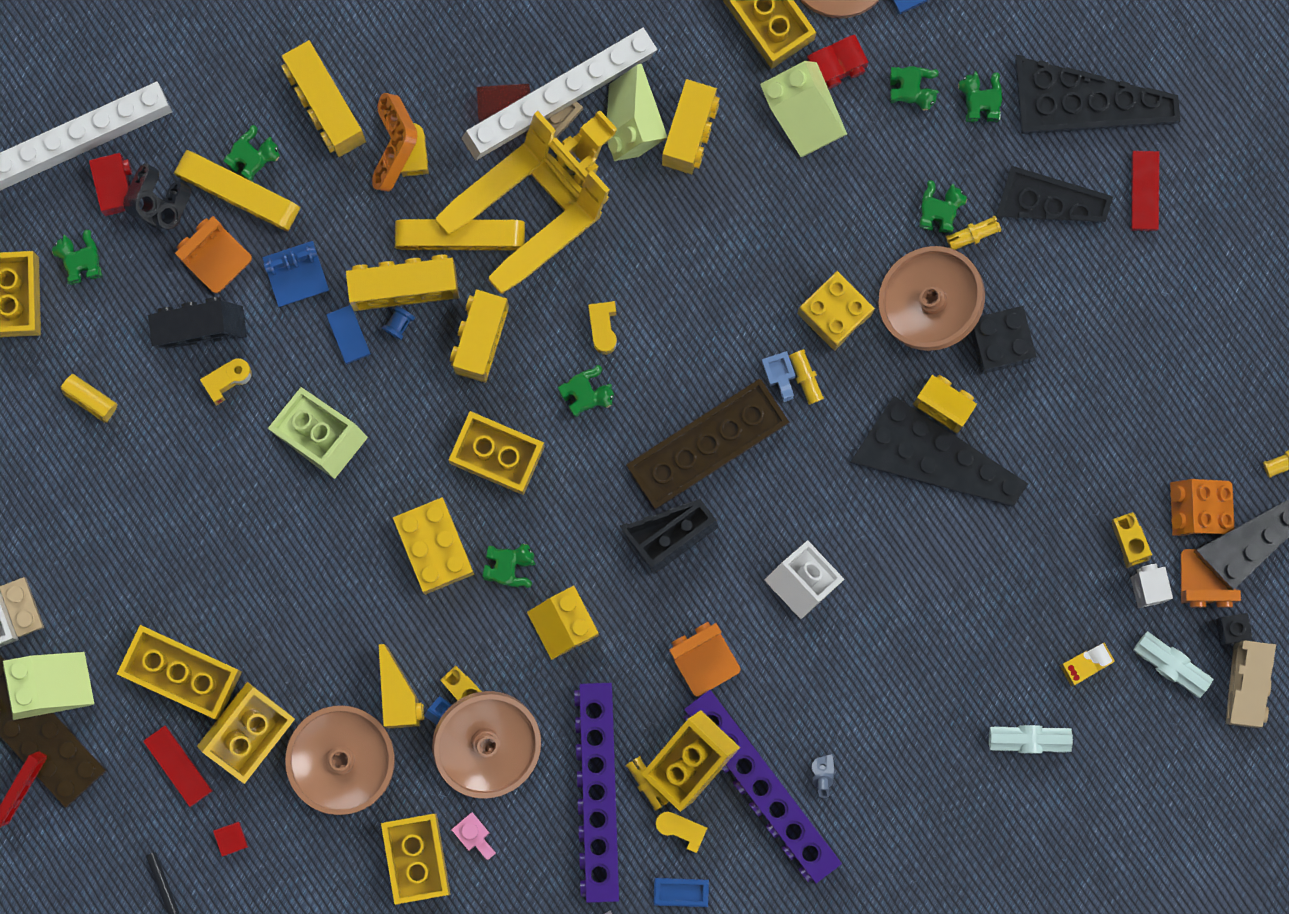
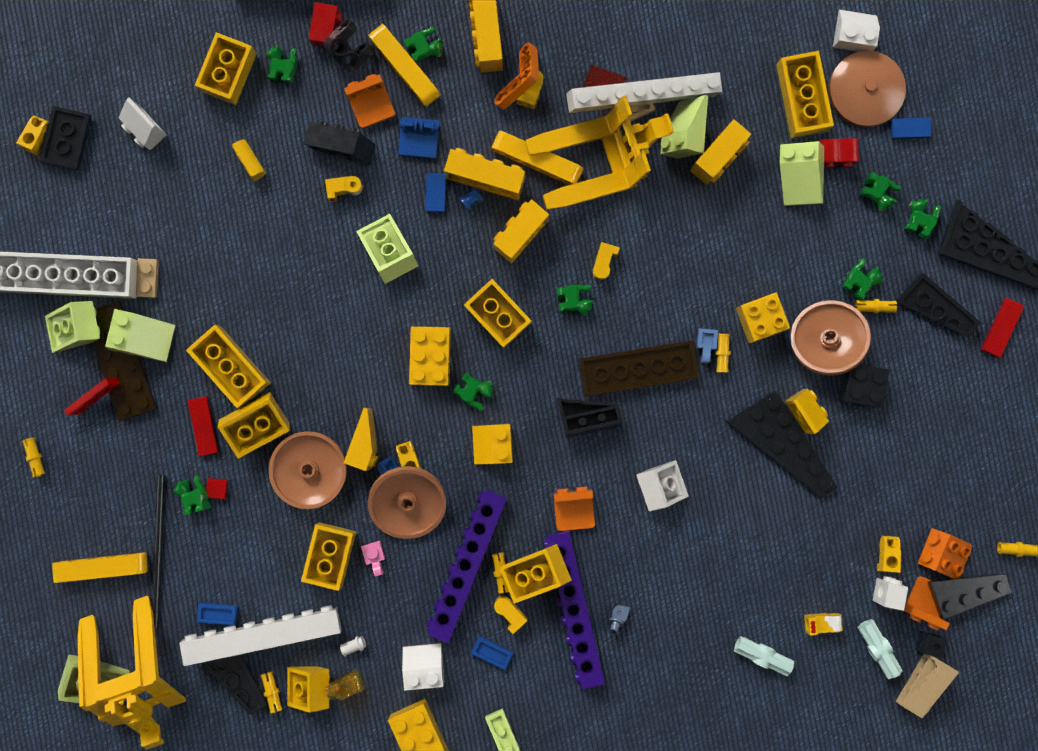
camera: 30 degrees right, 5 degrees up
(203, 866) = (192, 500): none -> green animal

